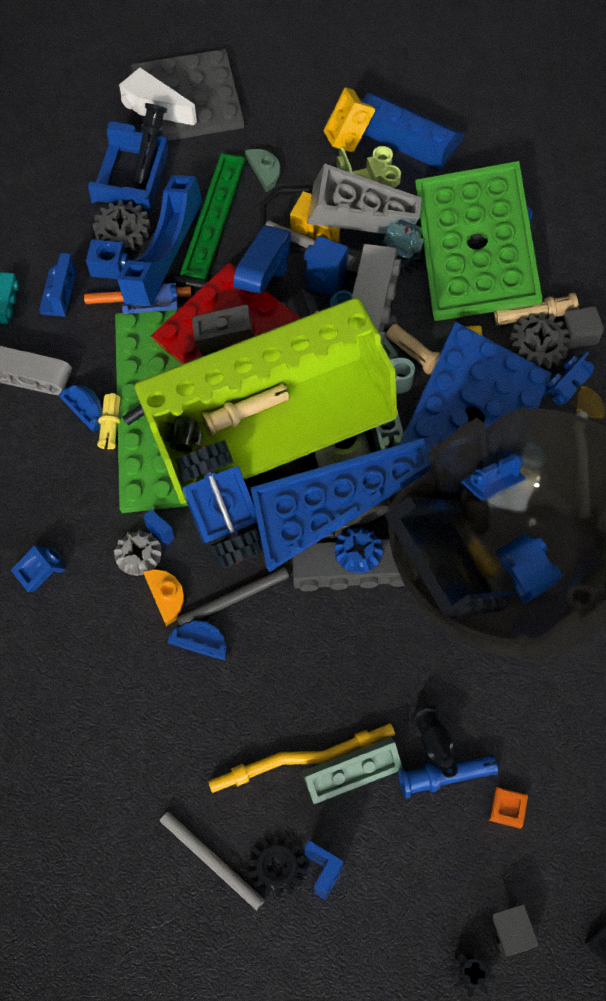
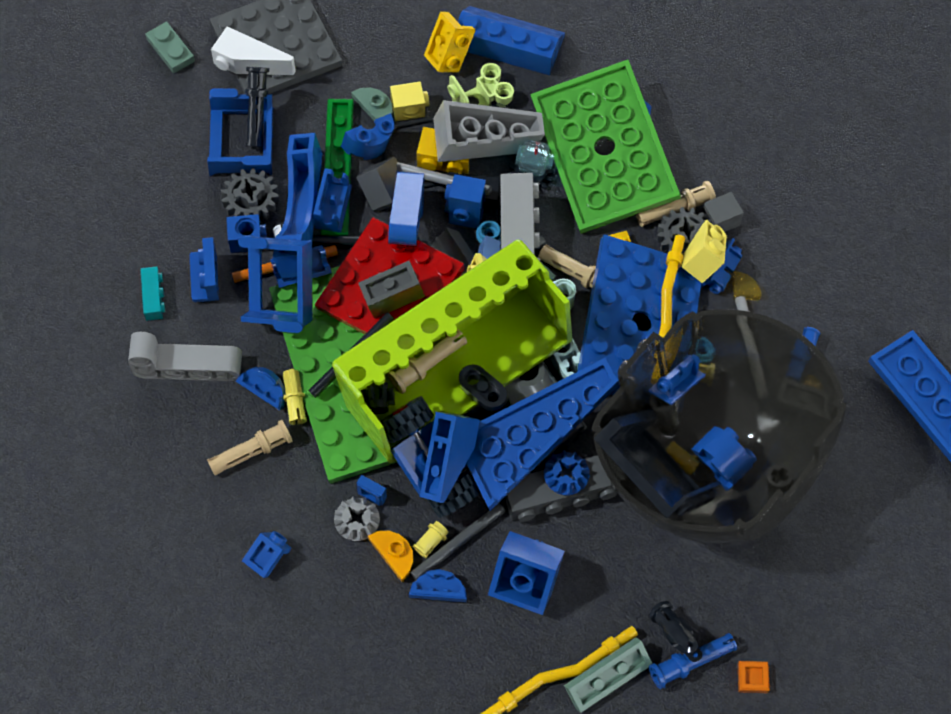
camera: 15 degrees left, 0 degrees up
(65, 458) = (262, 442): none -> tan pin
(88, 84) = (170, 47): none -> sand green plate
(141, 308) = (281, 320): none -> blue piece
(196, 244) = (332, 202): none -> blue hinge
(205, 589) = (431, 539): none -> light yellow pin
(239, 501) = (449, 450): none -> blue slope
(244, 233) = (379, 184): none -> dark grey slope
(248, 196) = (369, 142): none -> blue cylinder
(290, 643) = (526, 572): none -> blue brick
(293, 448) = (484, 389): none -> black plate
(296, 167) = (408, 101): none -> light yellow brick
(520, 362) = (673, 262): none -> yellow bar
(555, 358) = (705, 252): none -> light yellow slope

